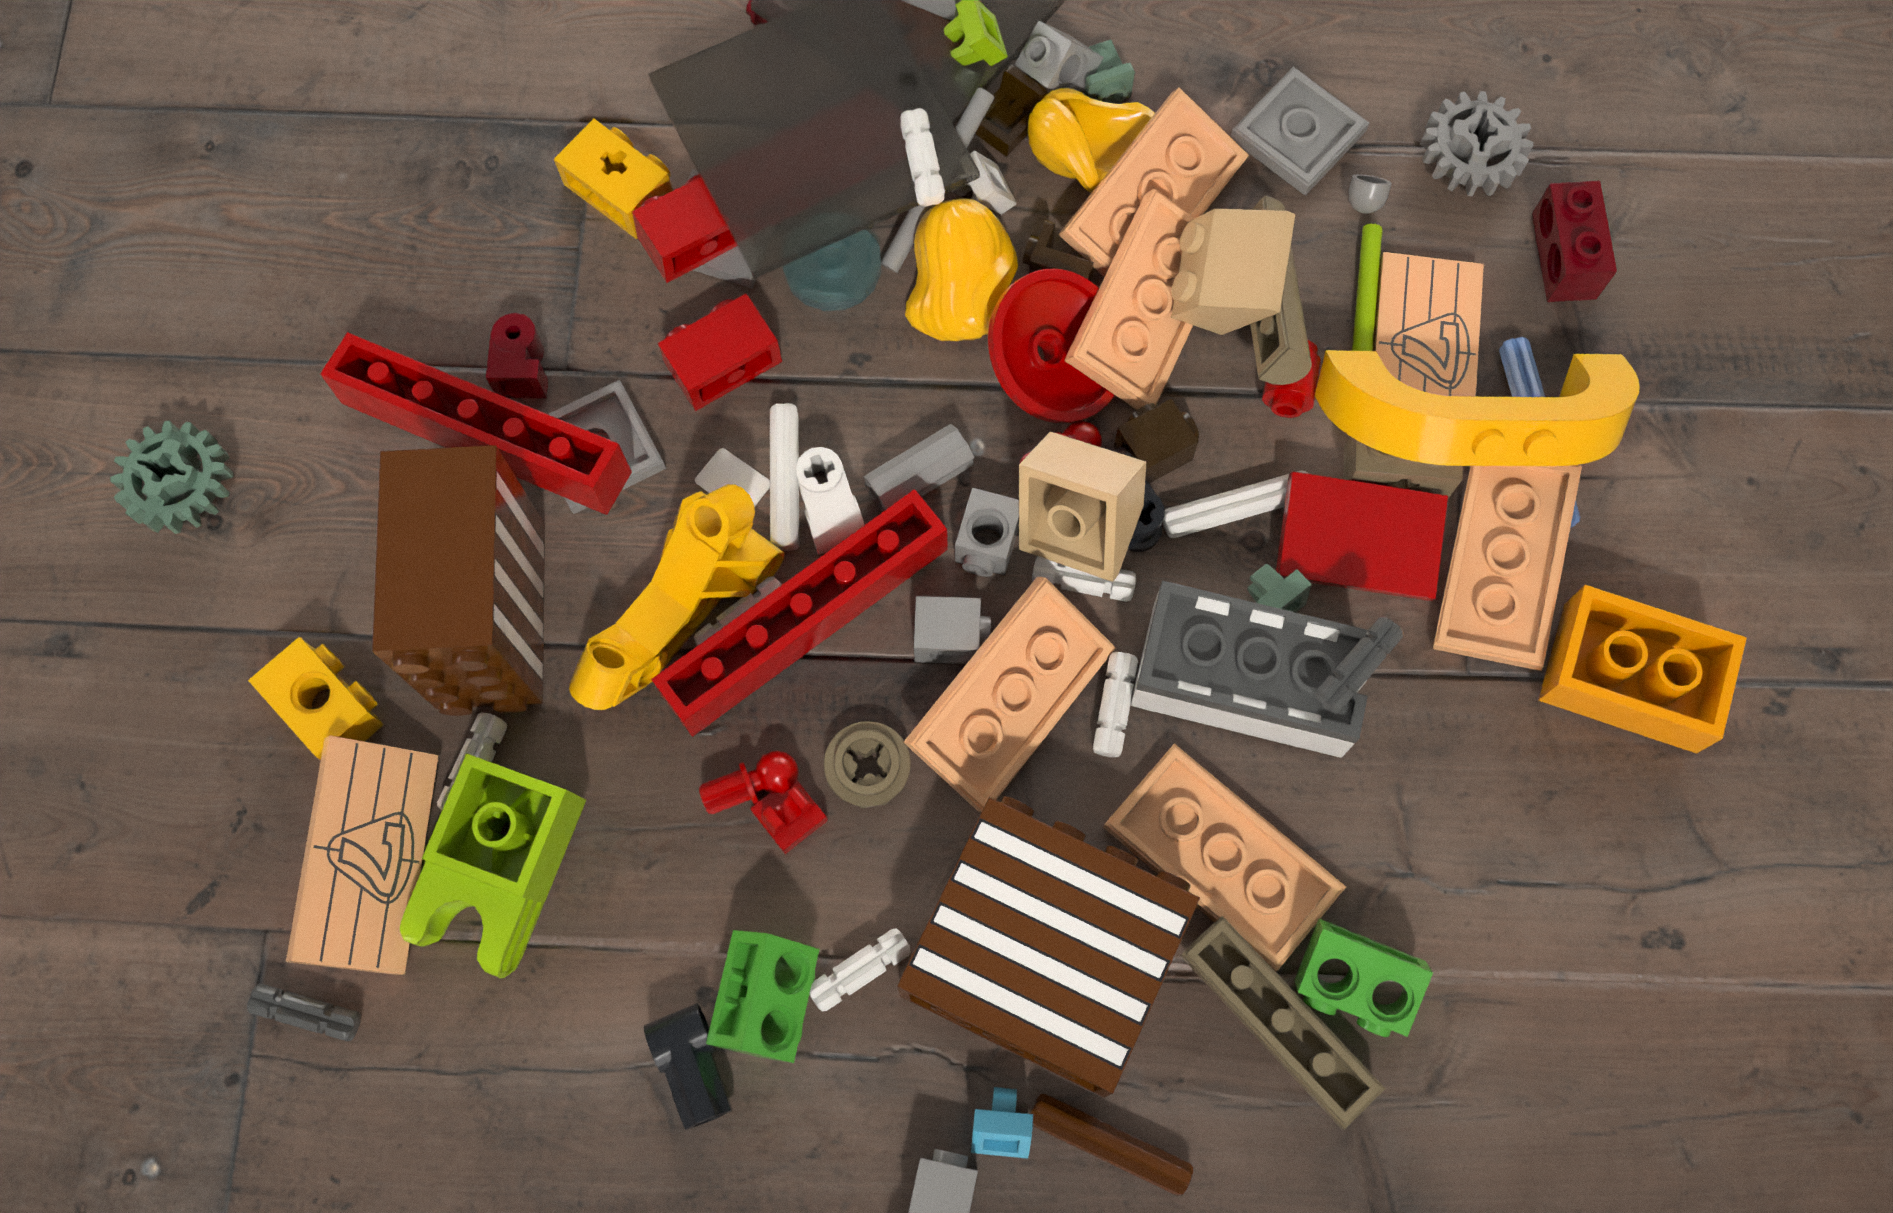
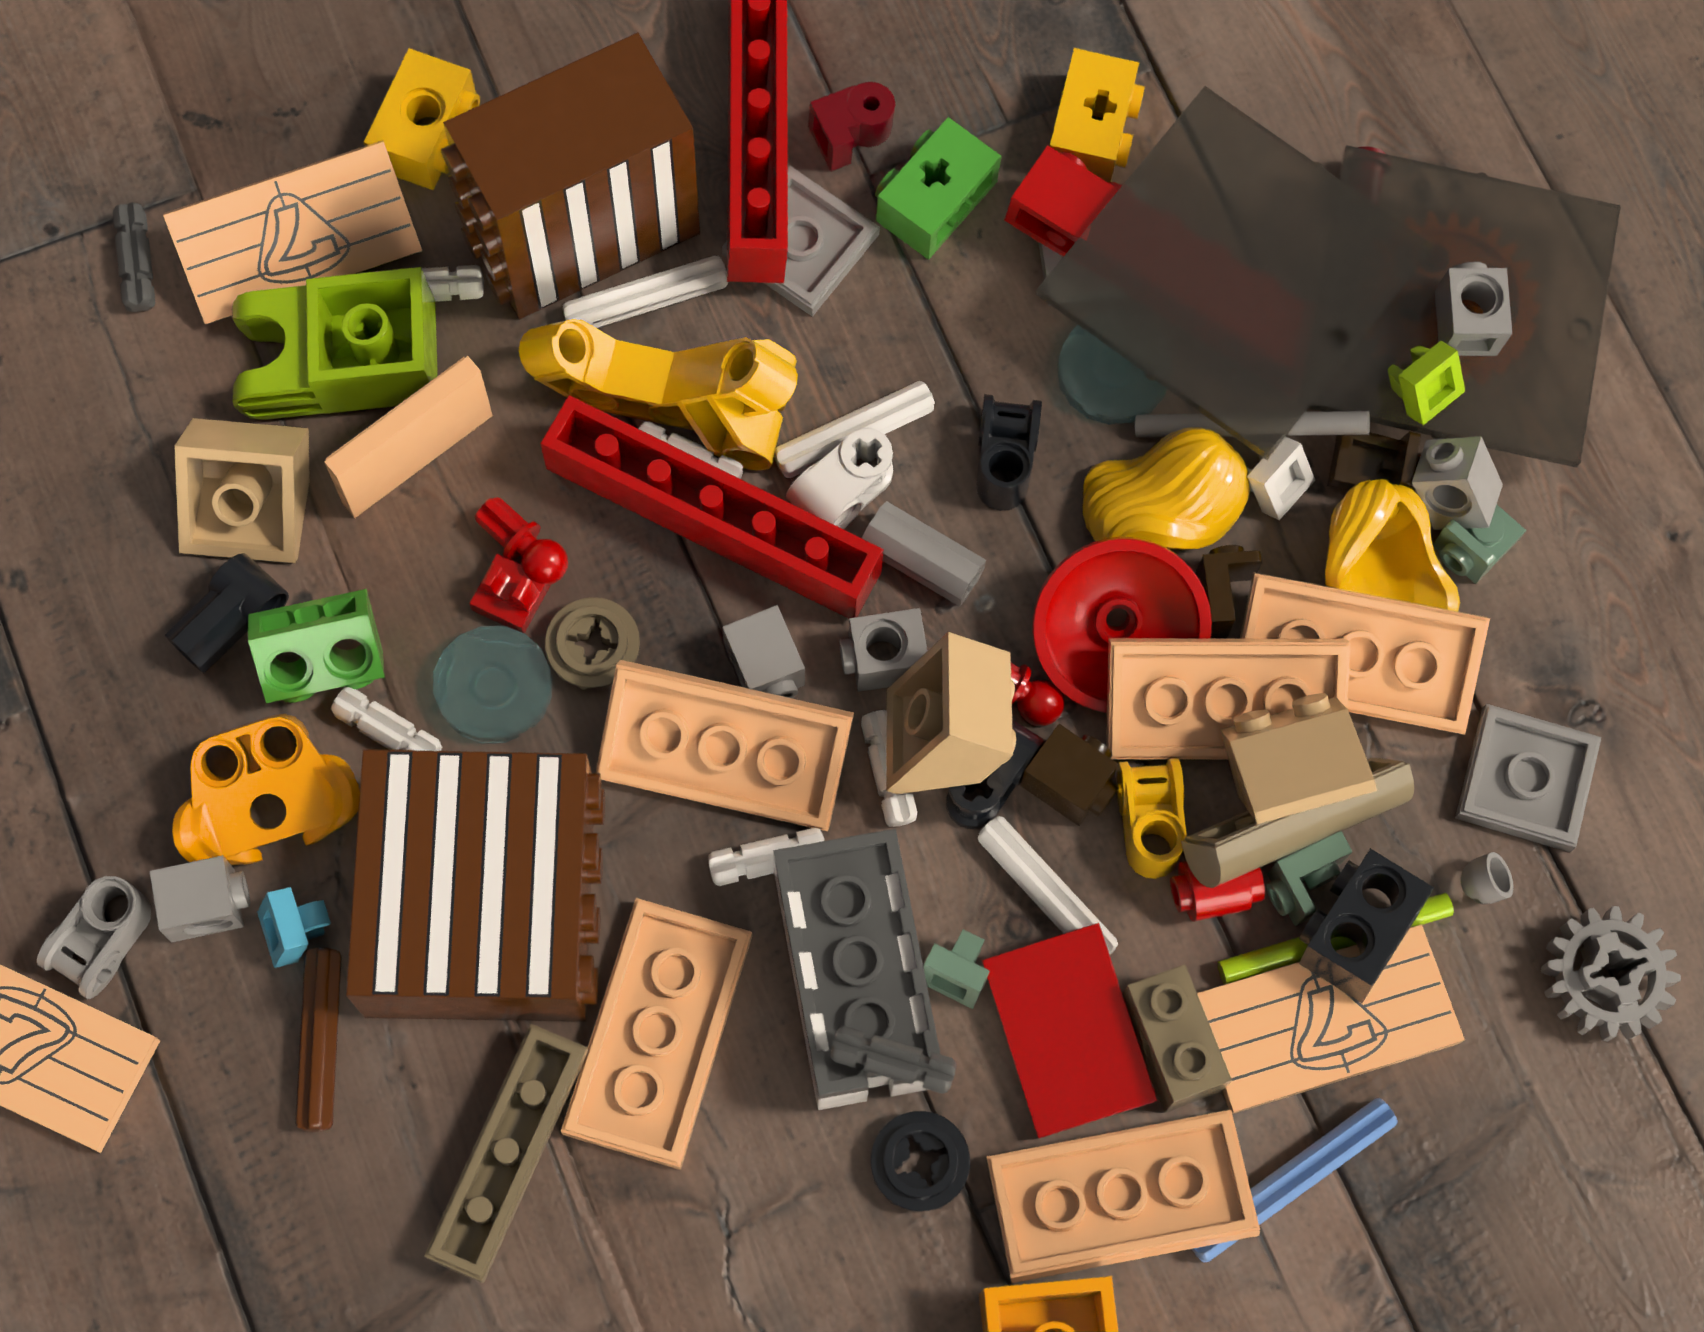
camera: 60 degrees right, 0 degrees up
(578, 588) = (648, 293): none -> white axle
(581, 1004) = (241, 489): none -> tan slope
(606, 293) = (936, 187): none -> bright green brick
(614, 832) = (409, 436): none -> light nougat tile
(720, 351) = (954, 304): red brick -> none
(728, 469) = (828, 385): white sticker -> none
(854, 363) = (1007, 442): none -> black piece
(862, 863) = (492, 684): none -> clear light blue tile
(878, 1150) = (217, 818): none -> light orange piece
(922, 157) = (1249, 389): white axle -> none
(1213, 393) = (1152, 804): none -> yellow piece
(1321, 327) = (1312, 865): none -> sand green bracket
(1368, 966) = (602, 1212): bright green brick -> none
(1387, 279) = (1371, 928): none -> black brick
(1432, 680) = (931, 1134): none -> black gear
(1477, 430) = (1237, 1110): yellow arch -> none
(1574, 241) = (1541, 1126): dark red brick -> none

